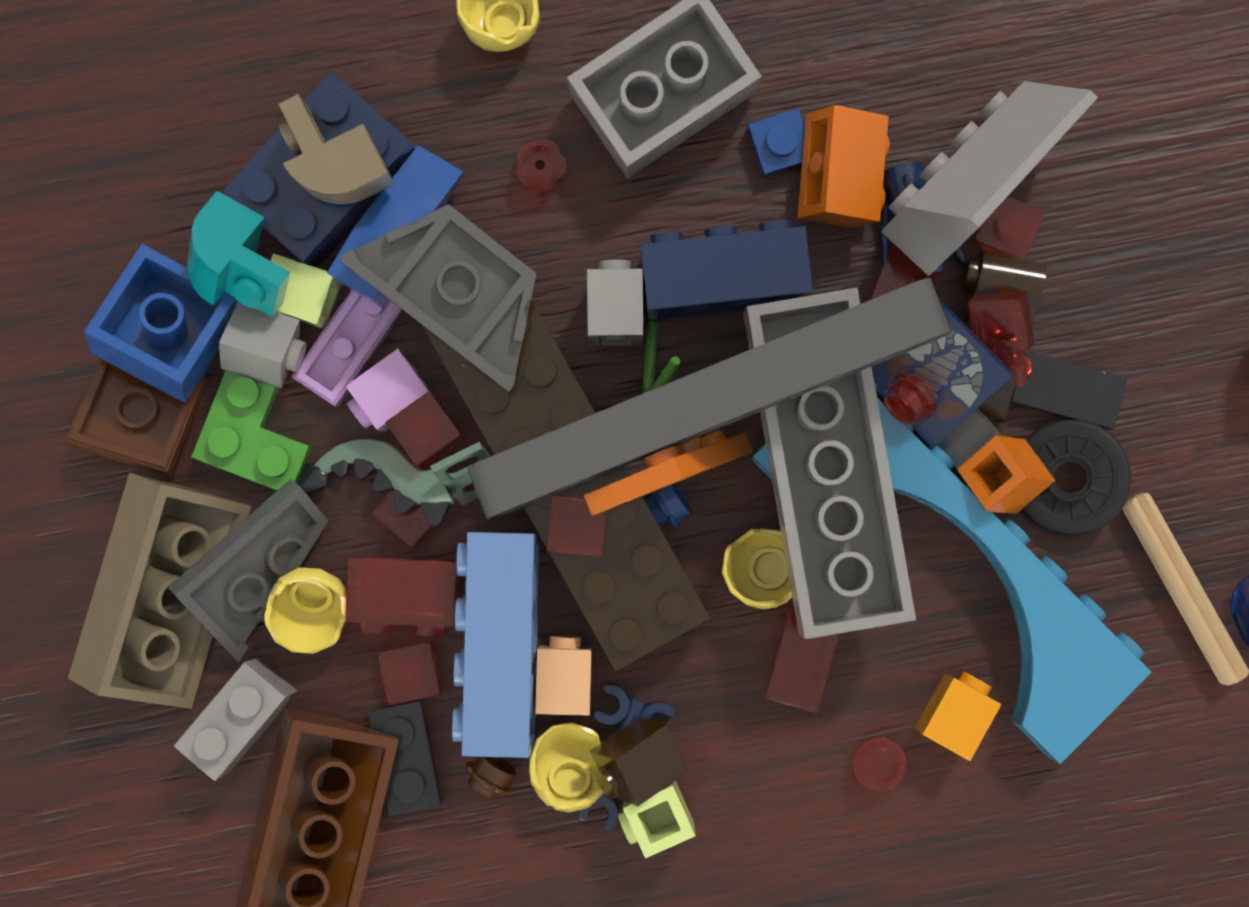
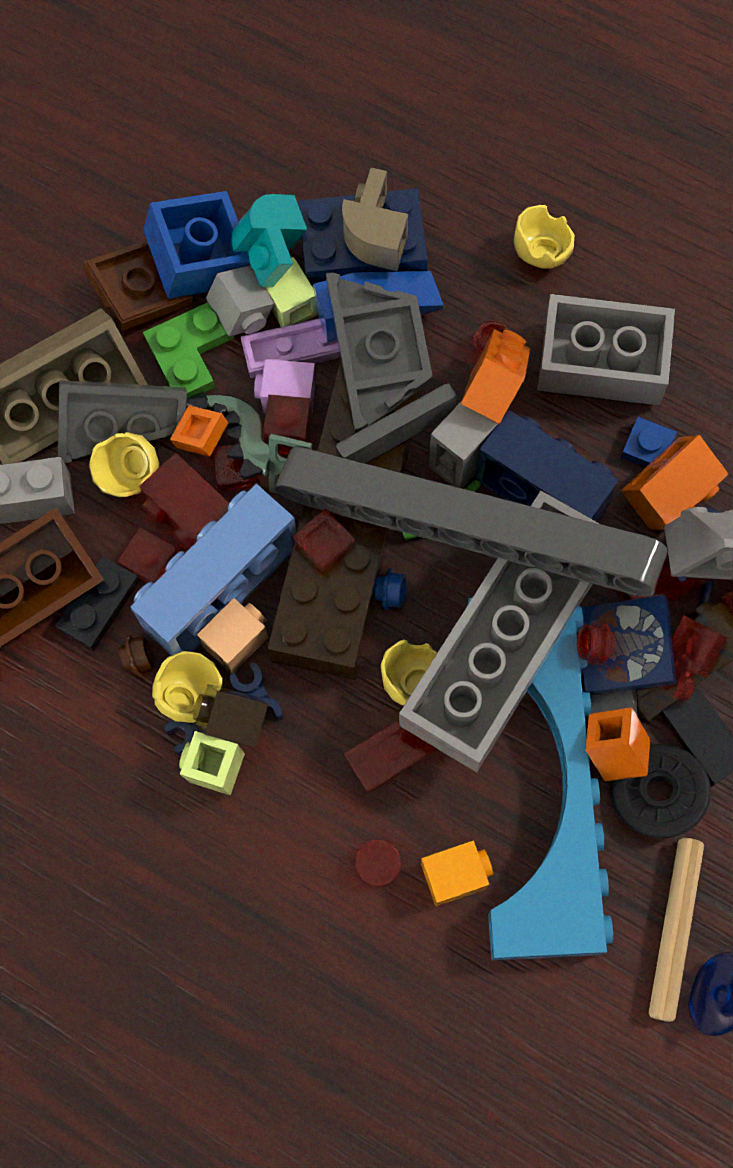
camera: 40 degrees right, 15 degrees down
(346, 511) = (199, 430): none -> orange plate
(548, 356) = (398, 426): none -> dark grey tile
(593, 214) = (497, 375): none -> orange brick
(669, 468) = (414, 553): orange wing -> none

